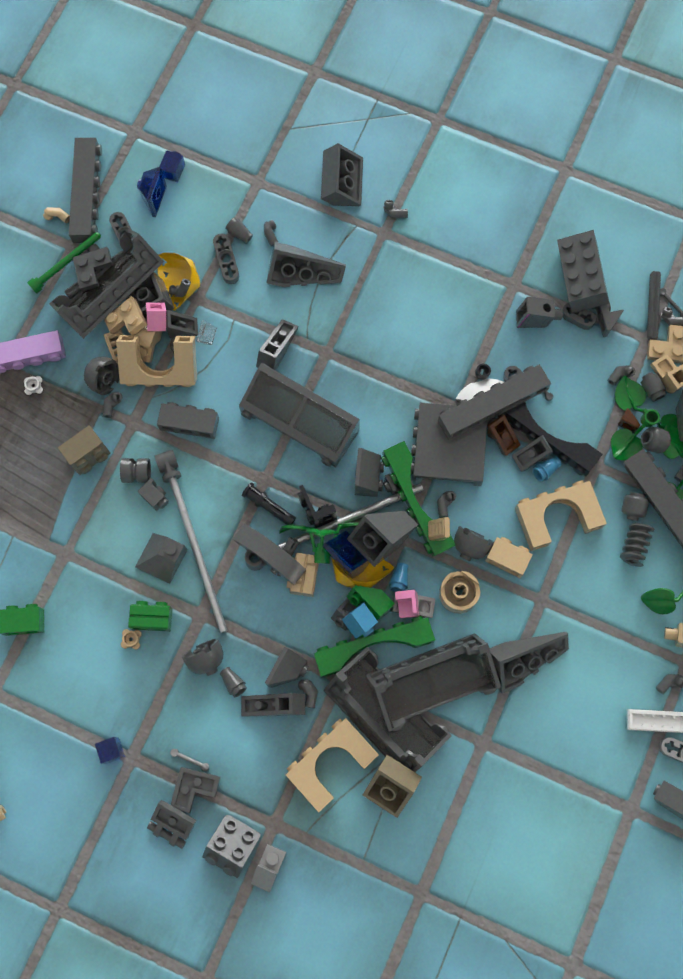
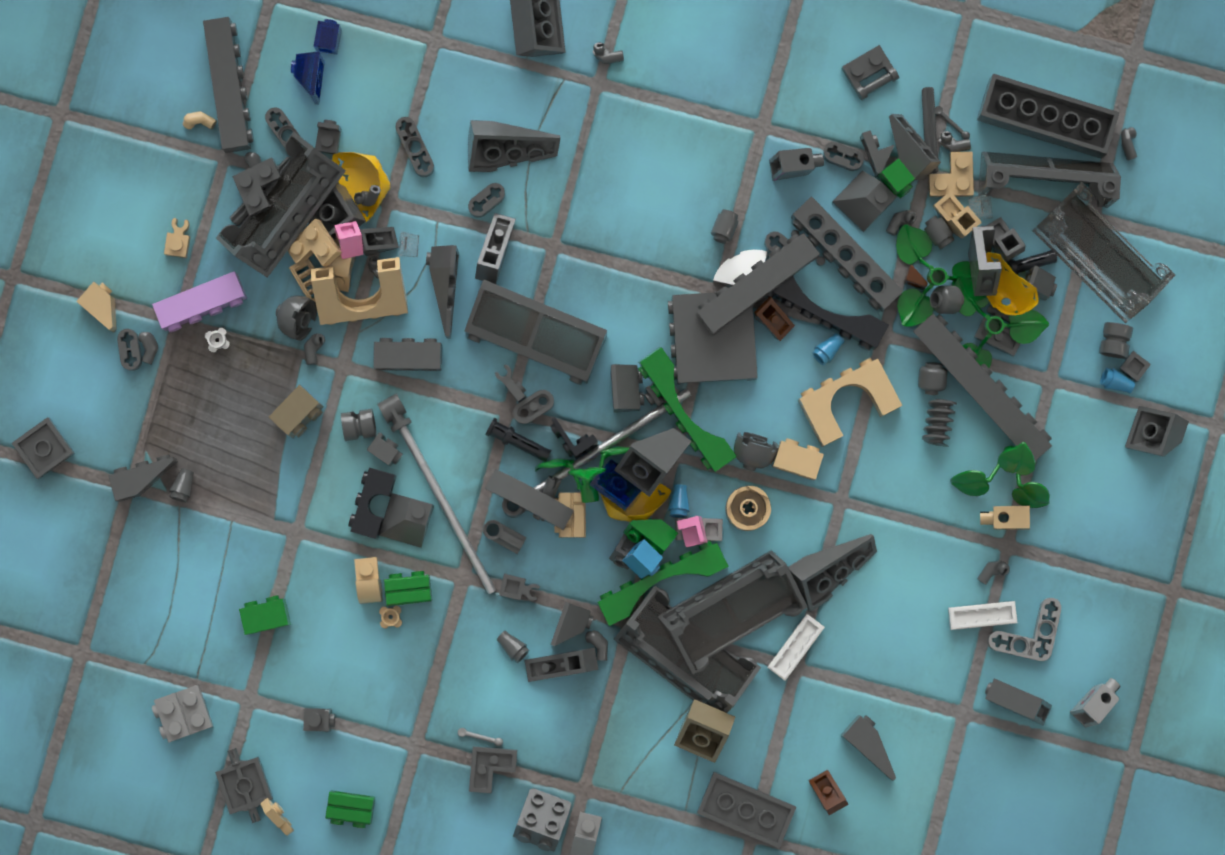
camera: 15 degrees left, 10 degrees up
(19, 304) = (177, 243): none -> tan plate
(37, 283) = (195, 213): green piece -> none
(49, 720) = (318, 719): none -> dark grey bracket
(60, 806) = (350, 808): none -> green brick
(109, 750) = (392, 741): clear blue brick -> none
(115, 606) = (367, 580): none -> tan brick
(139, 523) = (375, 484): none -> black arch
(158, 239) = (328, 137): none -> dark grey bracket
(173, 820) = (474, 803): dark grey plate -> none
(205, 658) = (478, 625): dark grey cylinder -> none
(231, 356) = (443, 270): none -> dark grey wedge
(238, 230) = (424, 109): dark grey cone -> none
(243, 585) = (506, 537): none -> dark grey piece
(244, 630) = (515, 586): none -> dark grey plate
(270, 236) = (460, 107): dark grey arm -> none
(273, 460) = (516, 388): none -> dark grey plate
(277, 308) = (490, 204): none -> dark grey beam
(286, 478) = (534, 408): none -> dark grey plate
(304, 774) = (607, 731): tan arch -> none
(420, 868) = (746, 810): none -> dark grey plate
(439, 529) = (715, 444): tan slope -> none
(444, 501) = (716, 407): dark grey arm -> none
(472, 356) = (724, 226): none -> dark grey brick
(485, 723) = (795, 647): none -> white plate
(487, 371) = (744, 244): black hinge -> none
(498, 864) = (828, 792): none -> reddish brown slope
(532, 453) = (809, 335): dark grey slope -> none
(540, 821) = (868, 742): none -> dark grey slope
(583, 271) = (841, 104): dark grey brick -> none
(583, 397) = (874, 273): none -> dark grey brick
(593, 352) = (864, 200): none -> dark grey slope
(611, 247) = (866, 66): none -> dark grey plate
(622, 337) = (897, 178): none -> green brick
(638, 319) = (912, 149): none -> dark grey slope

